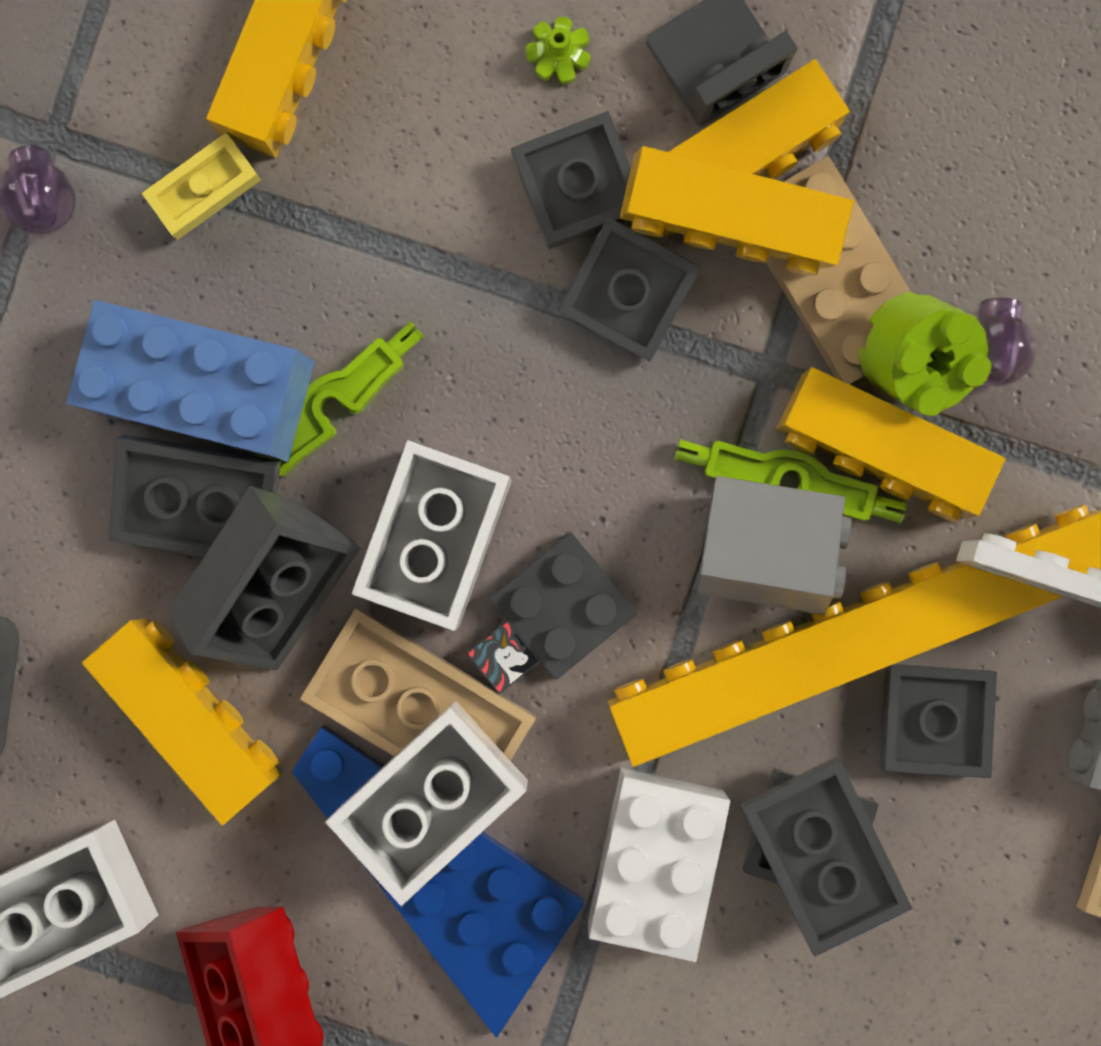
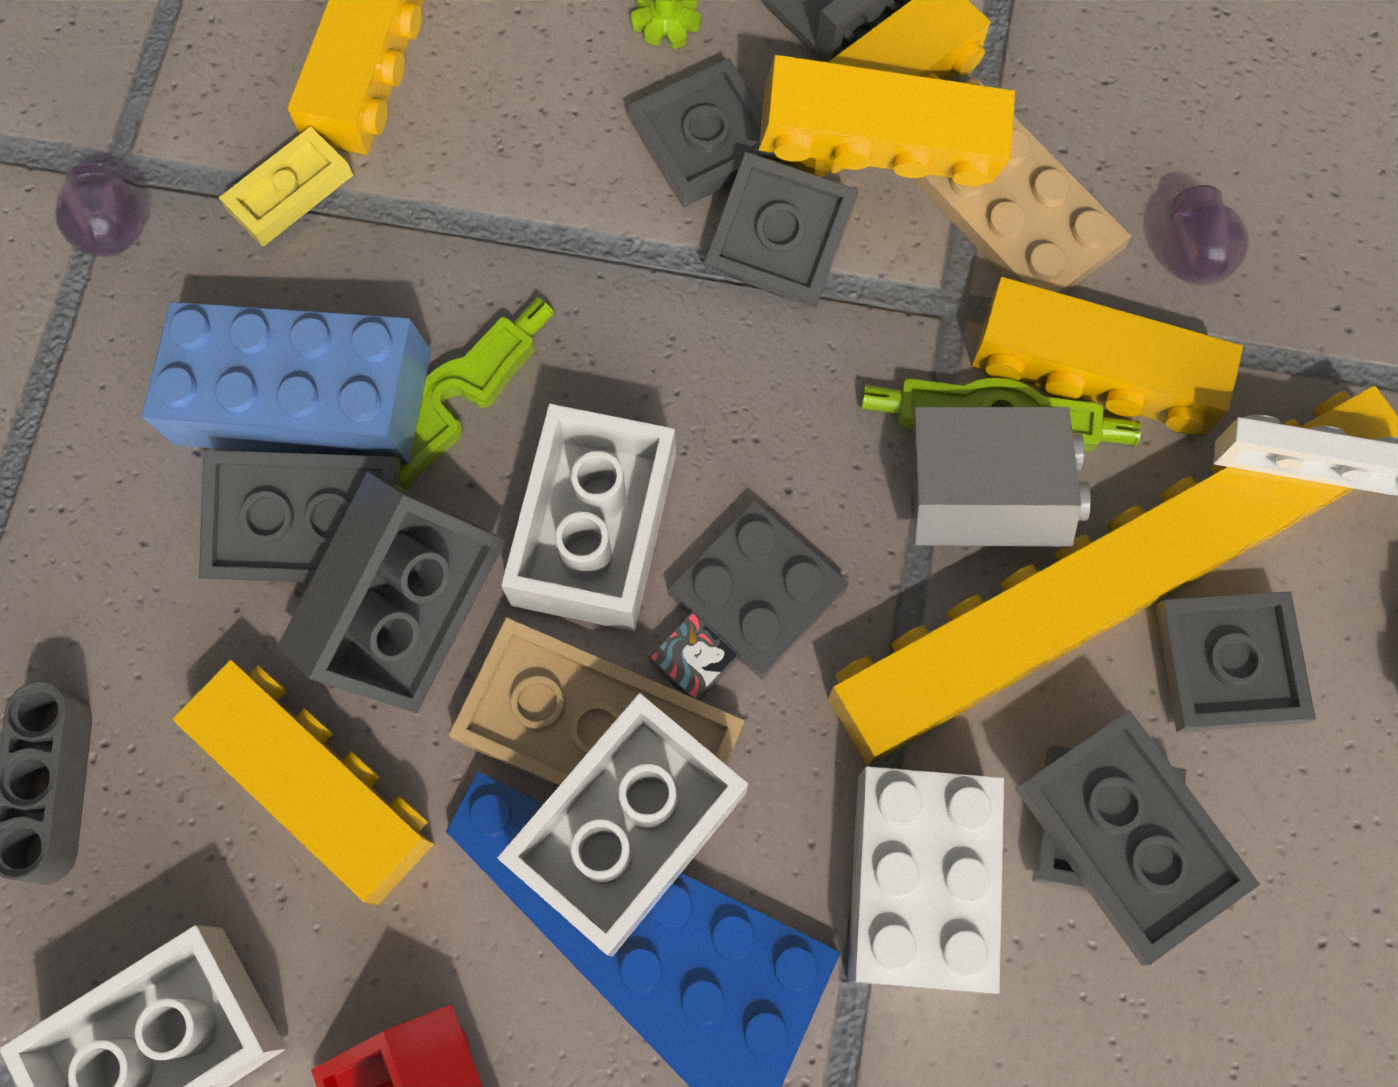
camera: 10 degrees left, 15 degrees down
(925, 352) = (1126, 244): lime brick -> none

